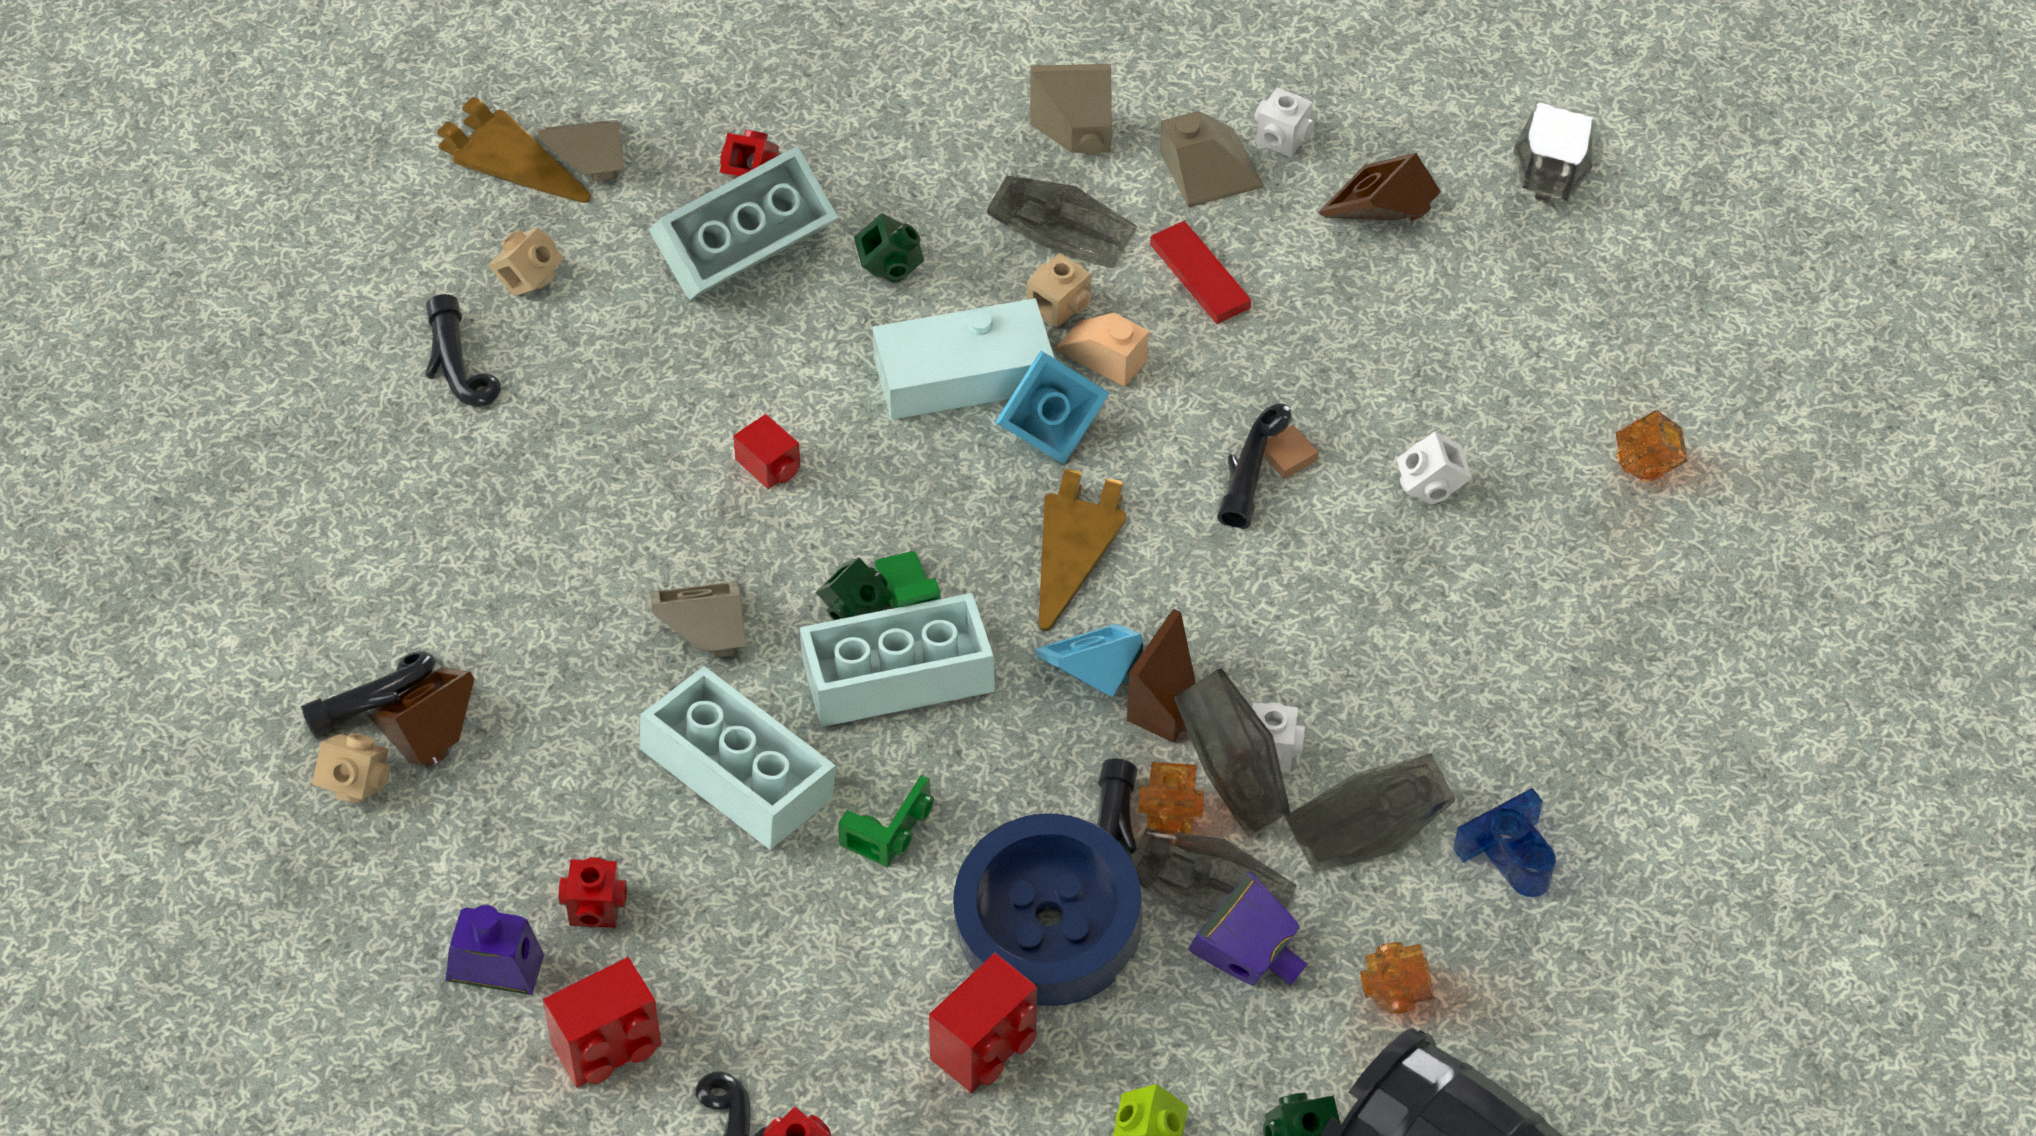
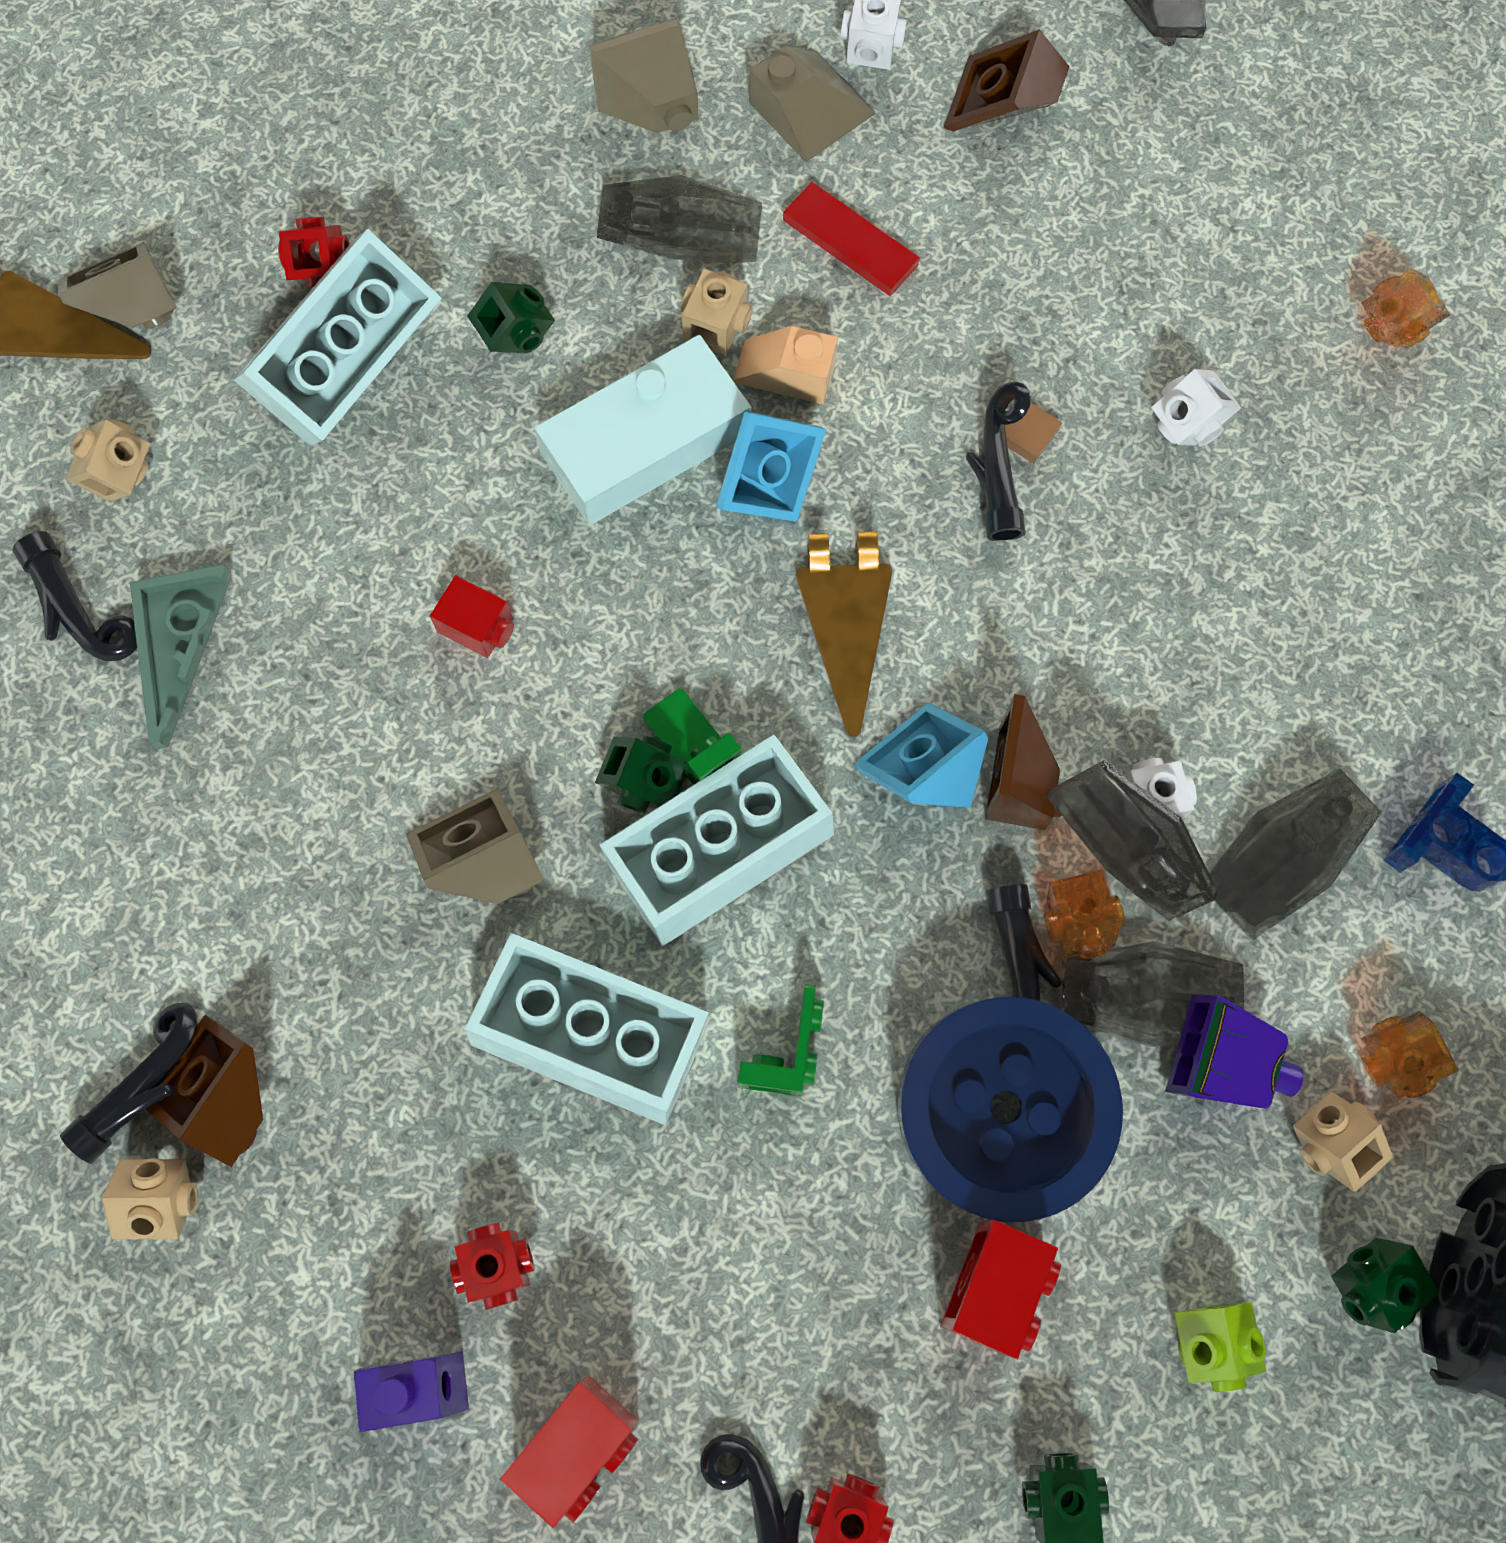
camera: 20 degrees left, 20 degrees up
(525, 396) = (172, 630): none -> sand green wing
(1327, 1020) = (1342, 1141): none -> tan brick

